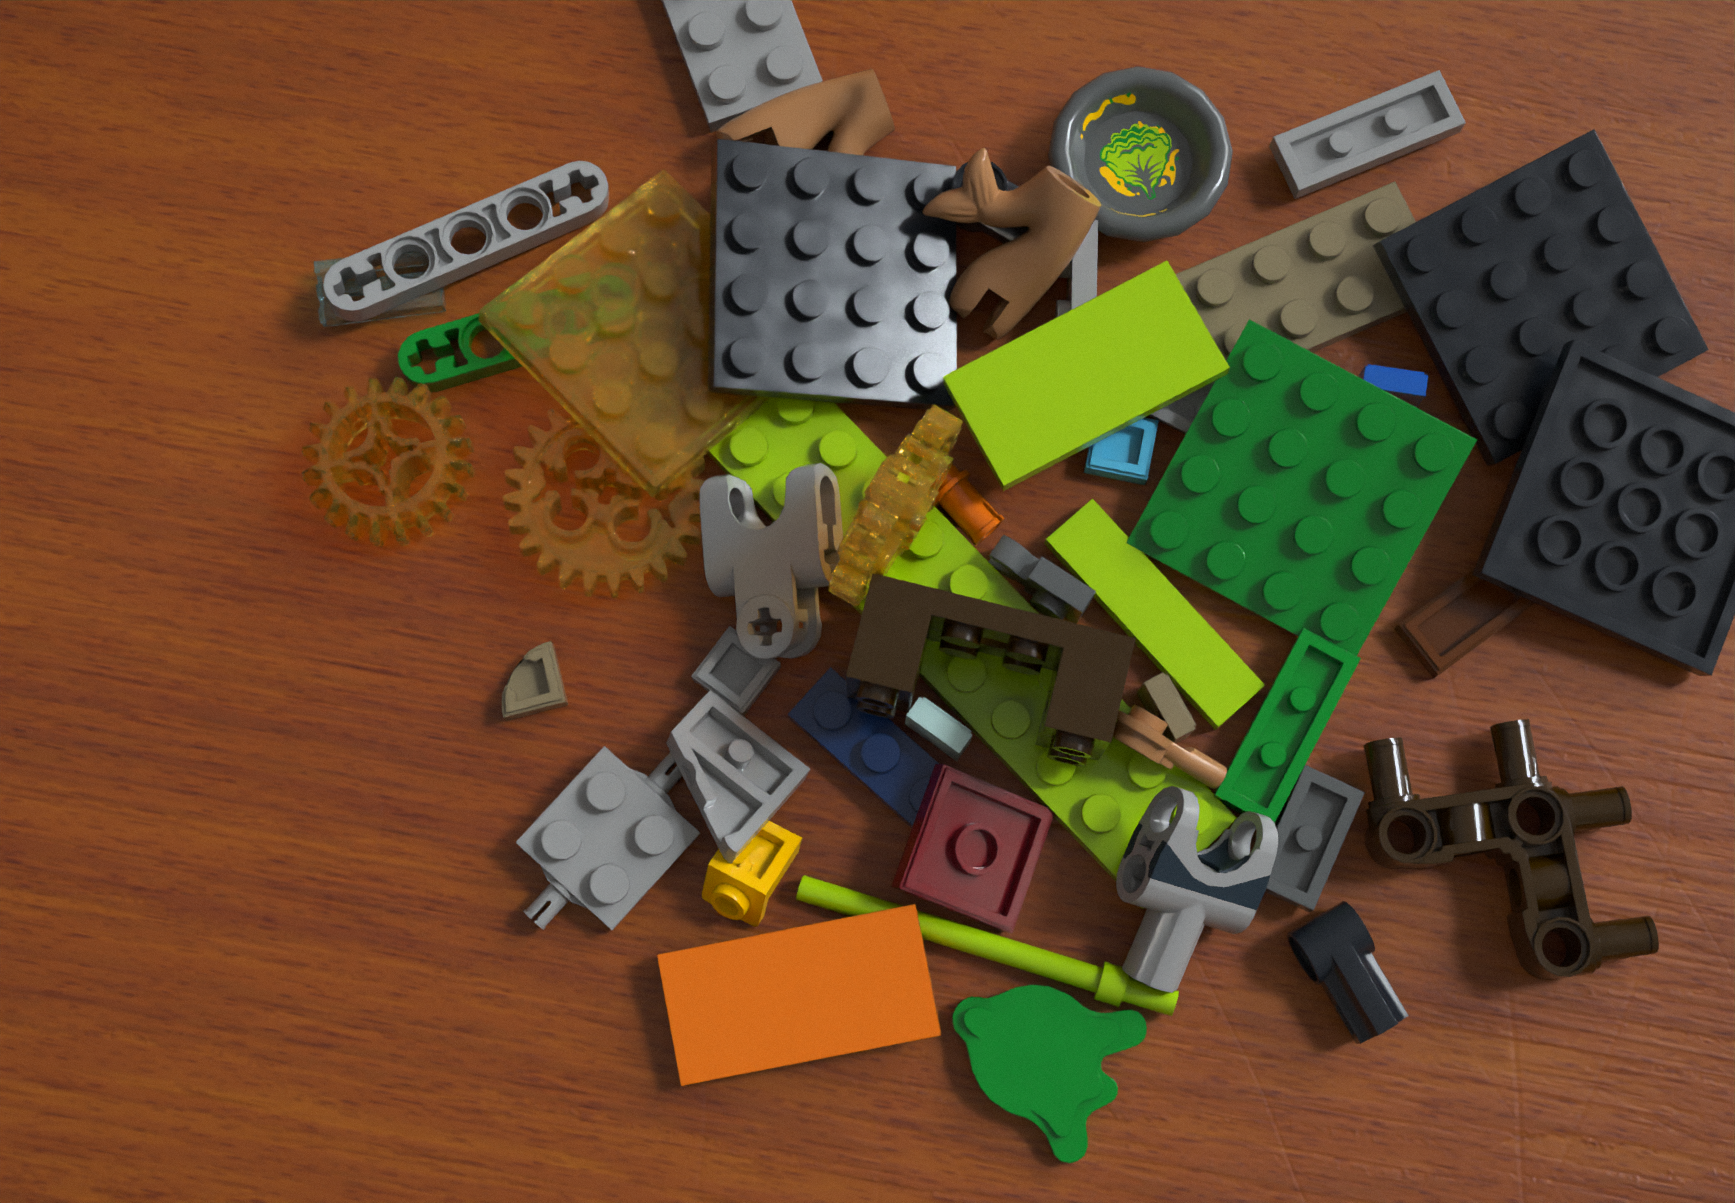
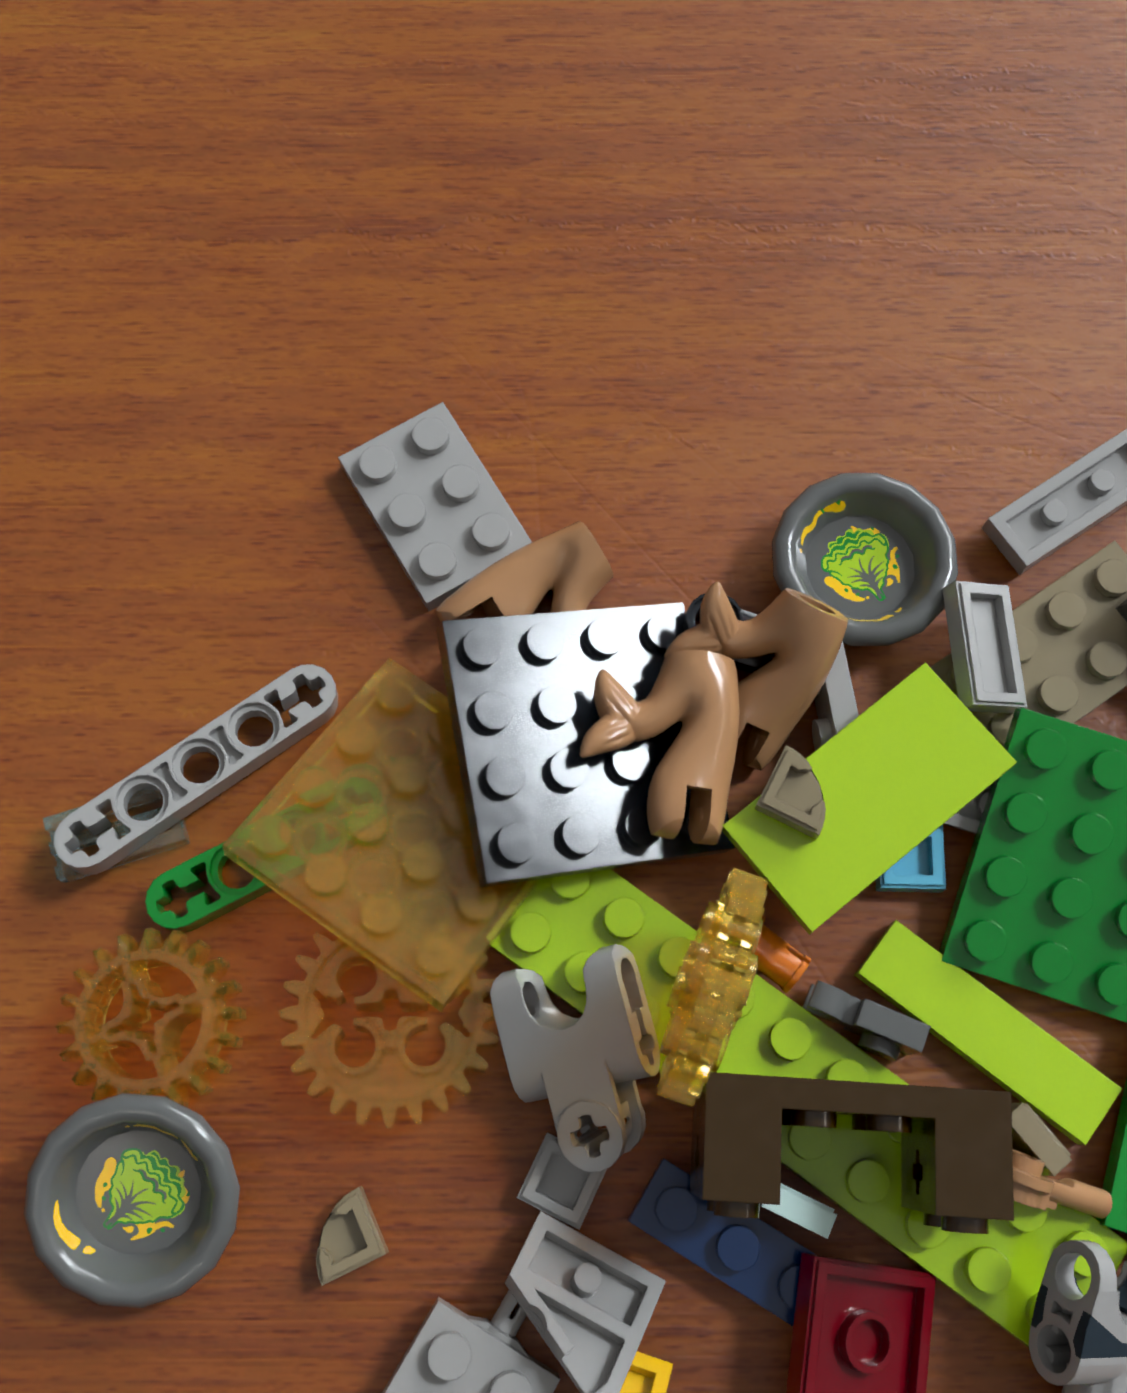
camera: 10 degrees left, 5 degrees down
(349, 608) = (131, 1200): none -> dark grey piece
(951, 254) = (702, 694): none -> medium nougat piece
(1013, 358) = (794, 795): none -> dark tan tile
(1232, 258) = (984, 647): none -> light grey tile

